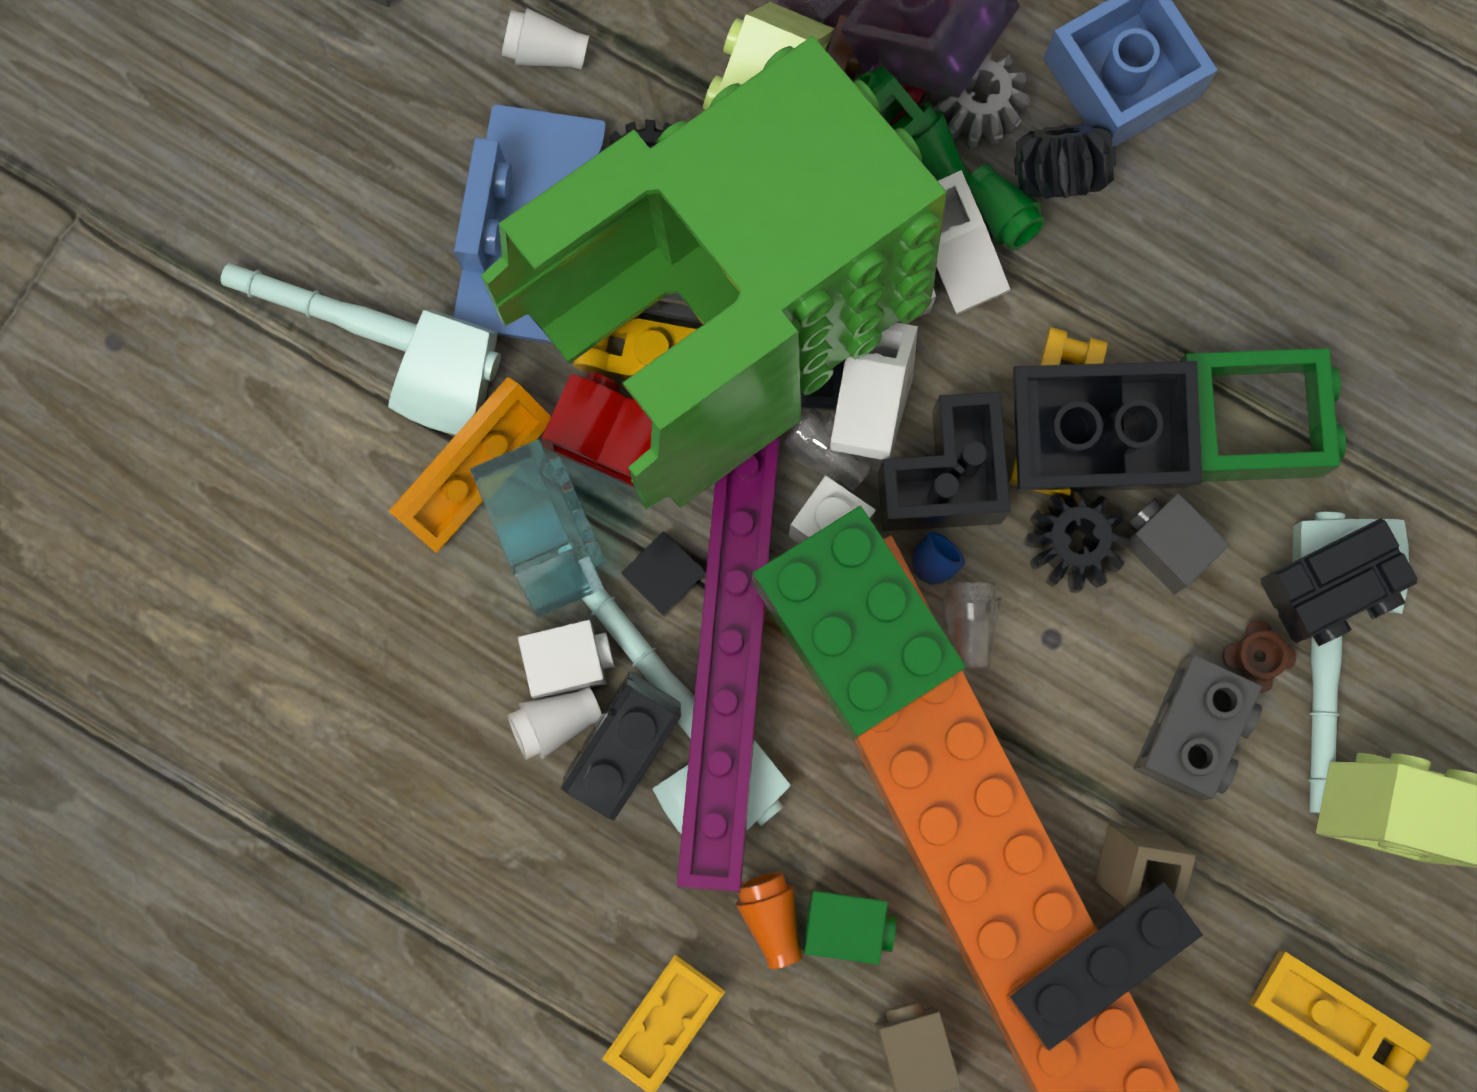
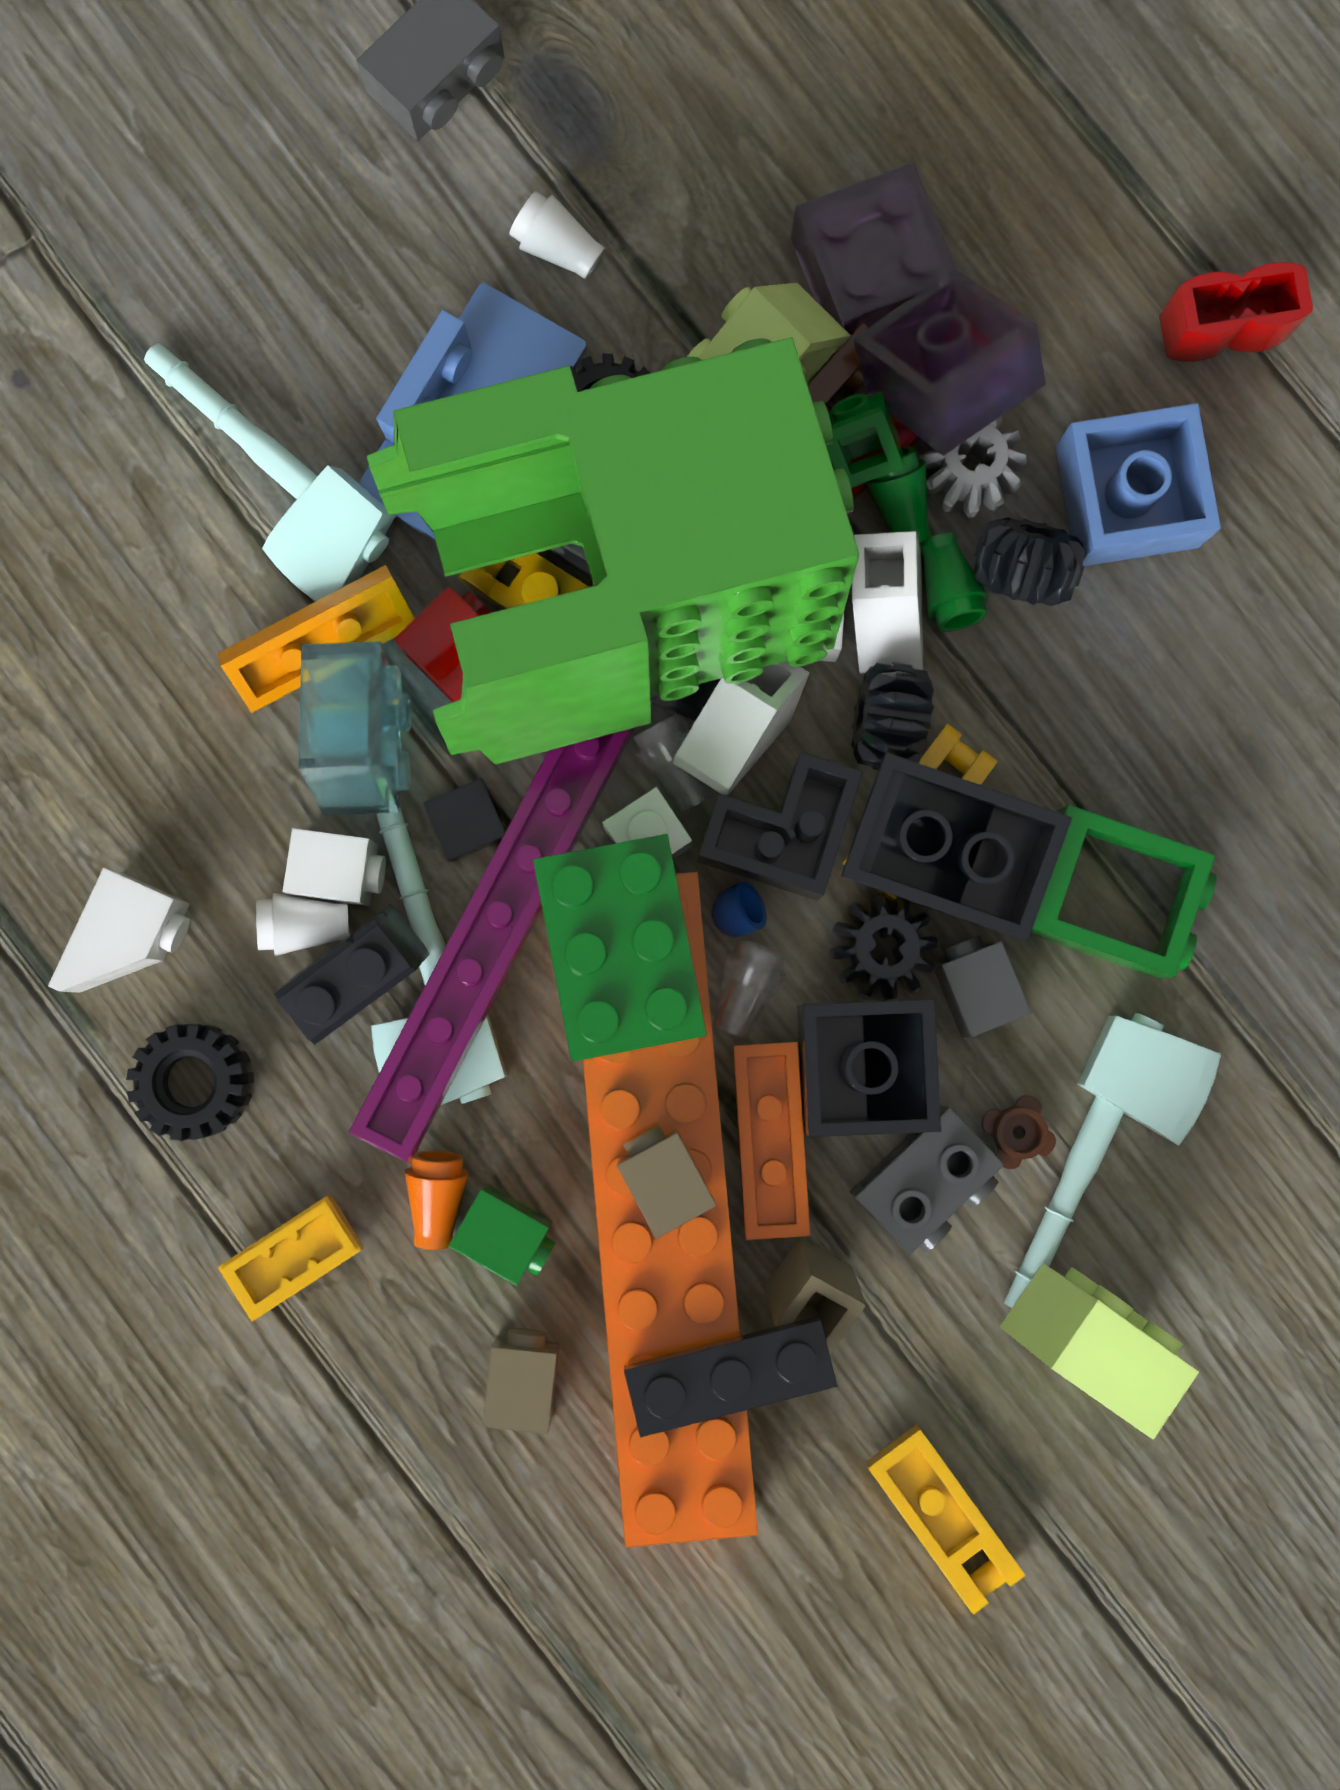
camera: 20 degrees right, 5 degrees up
(397, 791) = (120, 932): none -> white slope
(473, 909) = (152, 1088): none -> black tyre
(978, 812) = (664, 1180): none -> dark tan brick
(1000, 335) = (892, 714): none -> black gear
(1048, 749) = (771, 1140): none -> orange plate
(1108, 648) = (869, 1068): none -> black slope
(1339, 582) = (1125, 1093): black brick -> none

